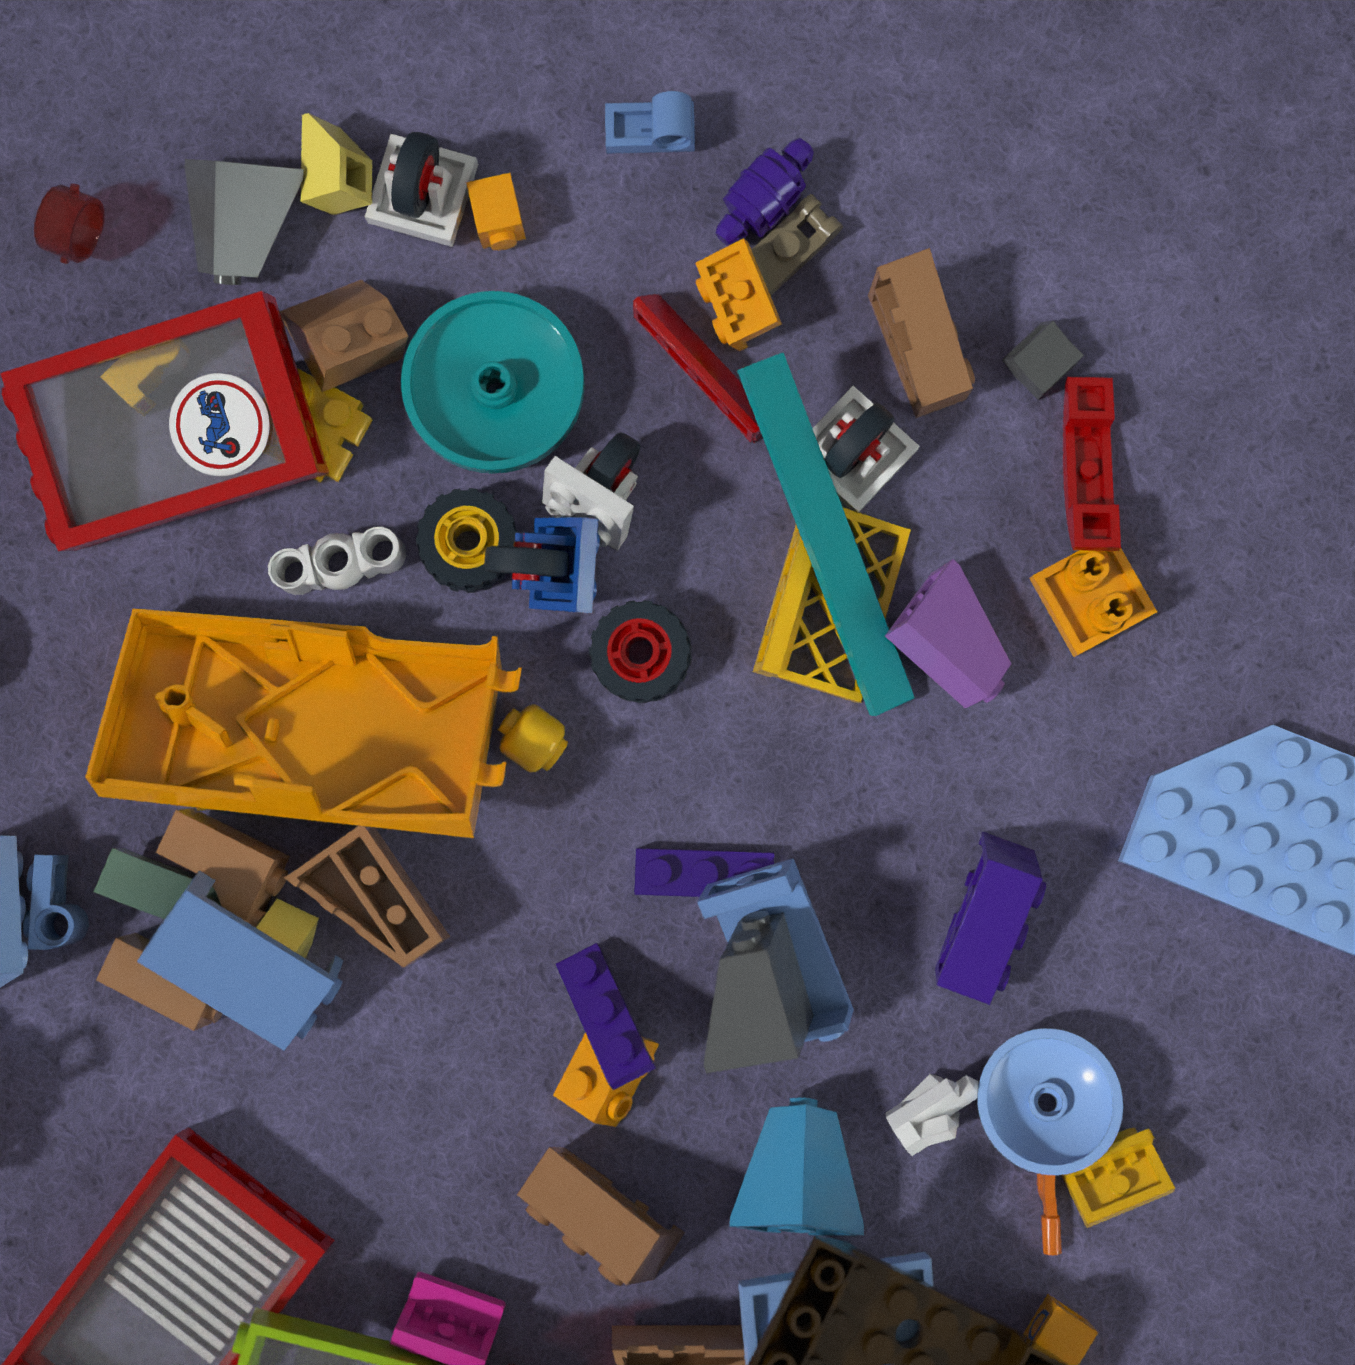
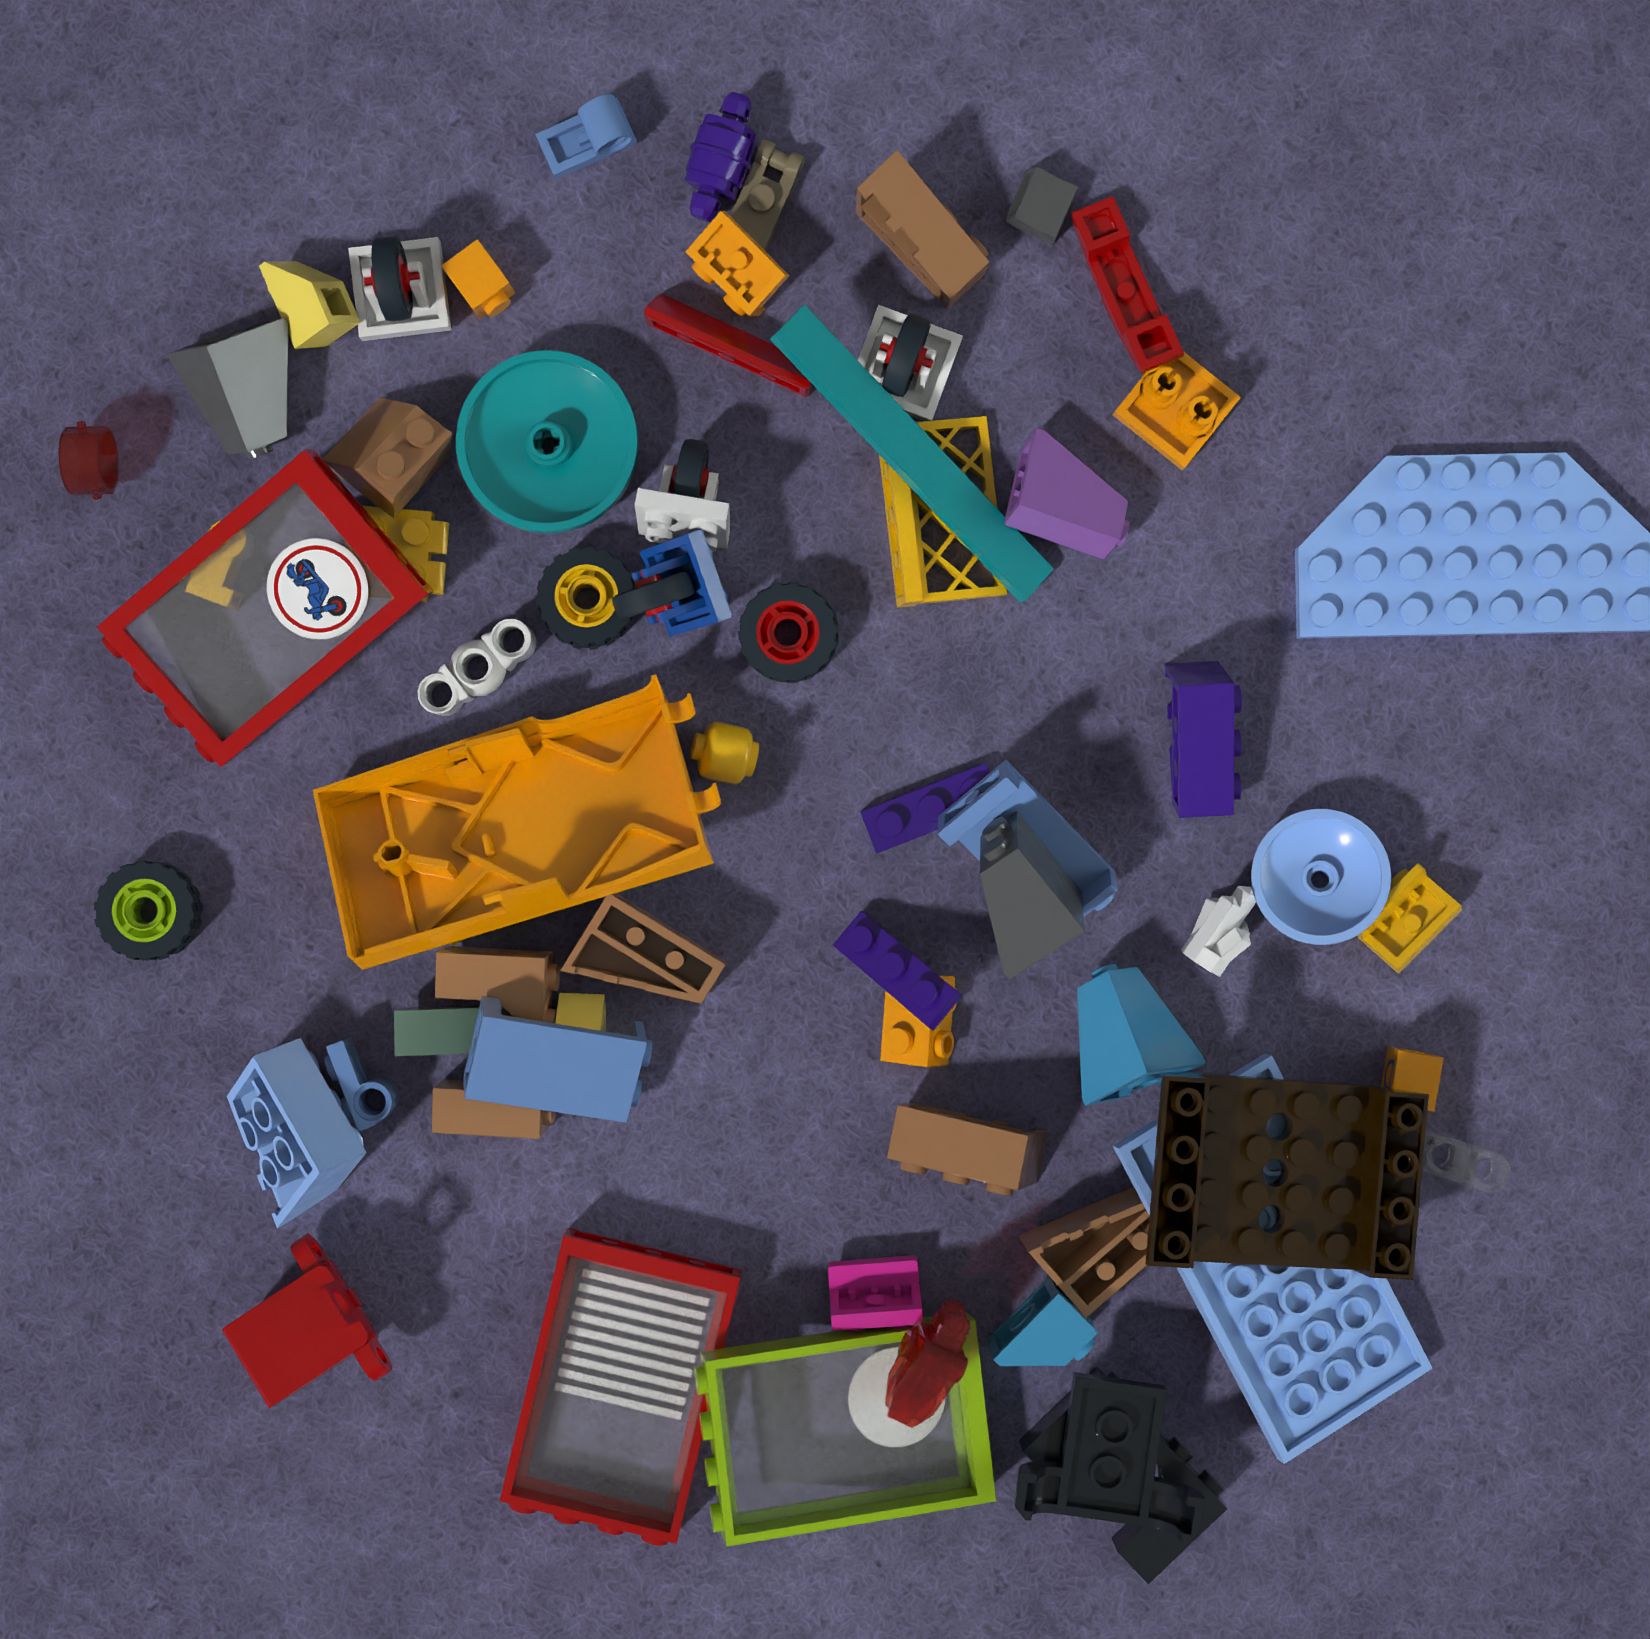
camera: 25 degrees left, 5 degrees up
(1049, 1219) = (1364, 980): orange piece -> none

